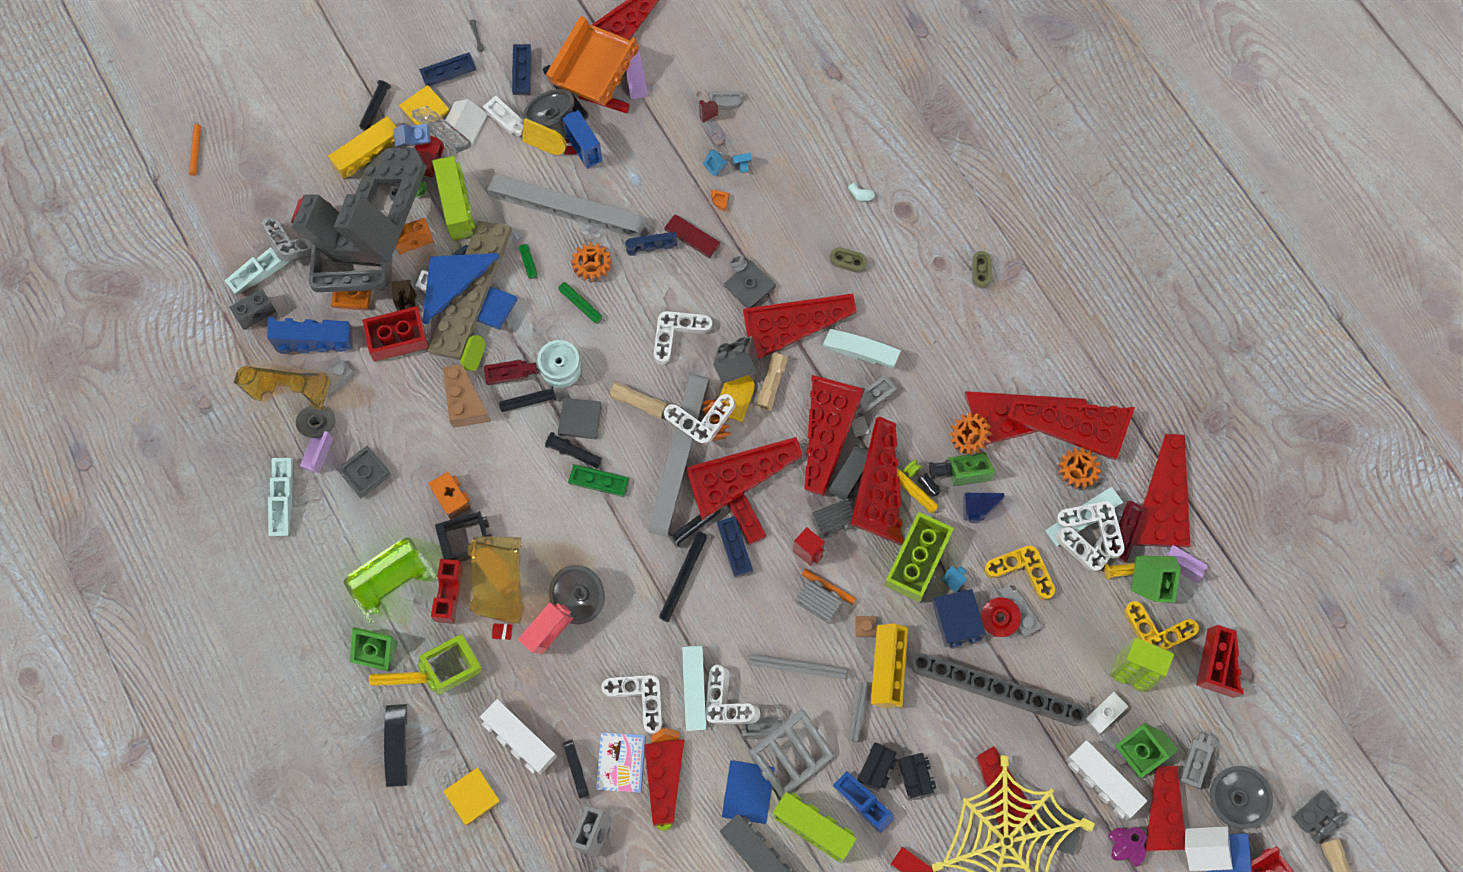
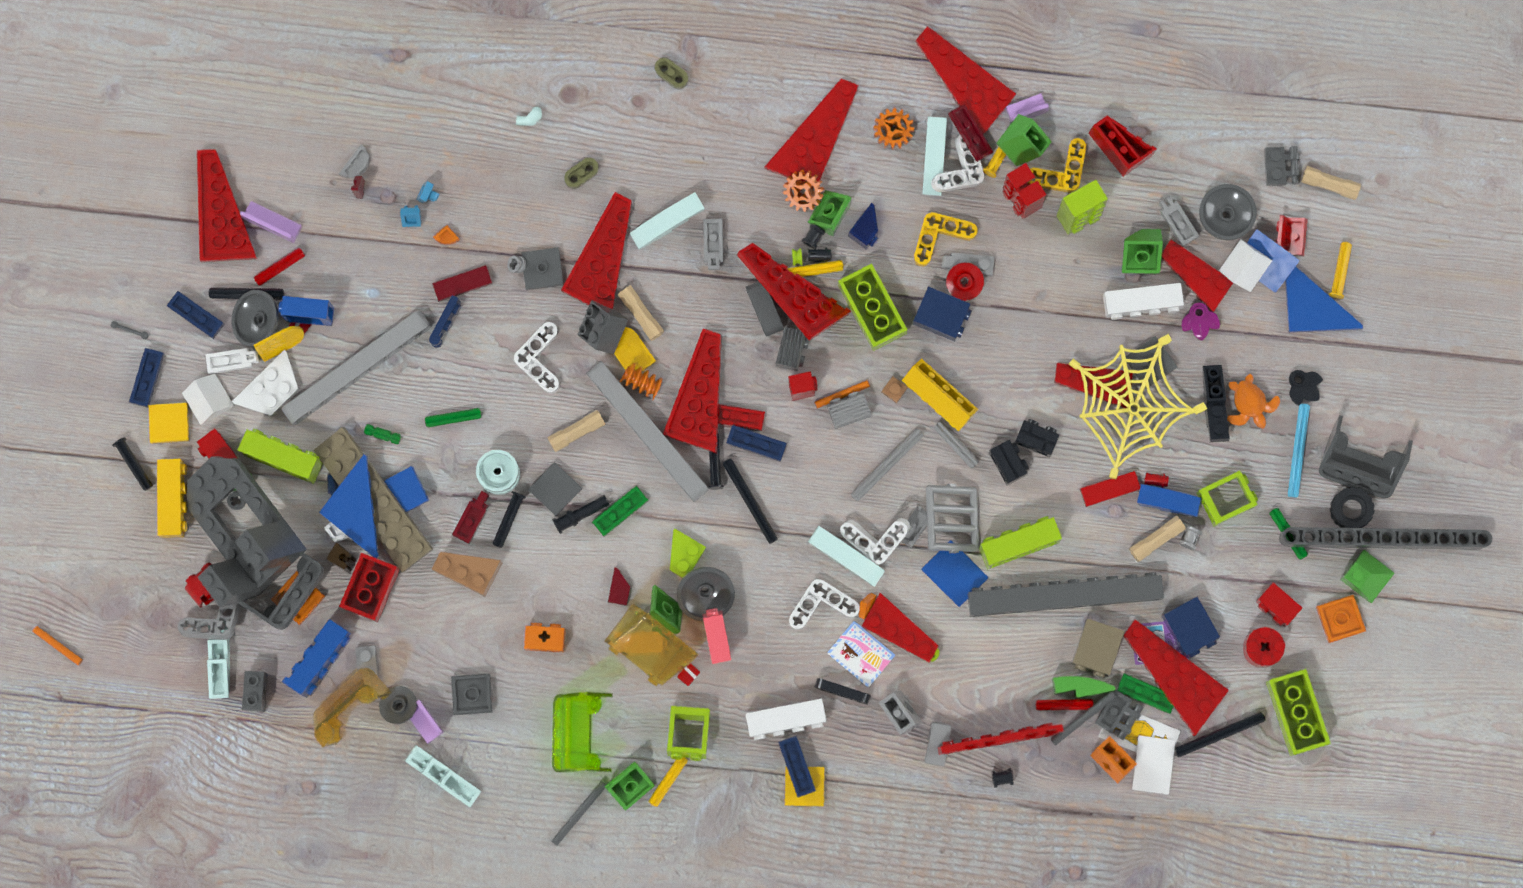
camera: 50 degrees left, 10 degrees up
(319, 625) = (579, 813): none -> dark grey bar
(395, 745) = (720, 817): black slope -> none
(411, 135) = (195, 451): medium blue slope -> none
(414, 235) = (289, 507): orange brick -> none
(441, 129) = (207, 422): clear plate -> none
(443, 527) = (569, 664): black window -> none
(449, 580) = (626, 694): red arch -> none
(473, 352) = (433, 536): lime tile -> none
(482, 776) = (797, 766): none -> dark blue plate
(505, 158) = (270, 388): none -> white wing
(533, 525) = (619, 589): none -> dark red tile
(537, 570) = (665, 610): none -> bright green slope
(591, 269) = (431, 382): orange gear -> none
(592, 62) = (241, 250): orange panel -> none
(601, 555) = (684, 553): none -> lime wing
(705, 424) = (642, 393): white beam -> none
(829, 424) = (709, 291): red wing -> none
(860, 426) = (729, 271): white sticker -> none
(863, 801) = (1026, 492): blue slope -> none
(954, 578) = (908, 292): dark azure tile -> none
(1008, 689) = (1024, 320): dark grey beam -> none
(1082, 425) = (864, 98): red wing -> none
(1096, 516) = (943, 147): white beam -> none
(1106, 713) = (1094, 260): white plate -> none
(1113, 612) = (1025, 197): none -> red piece

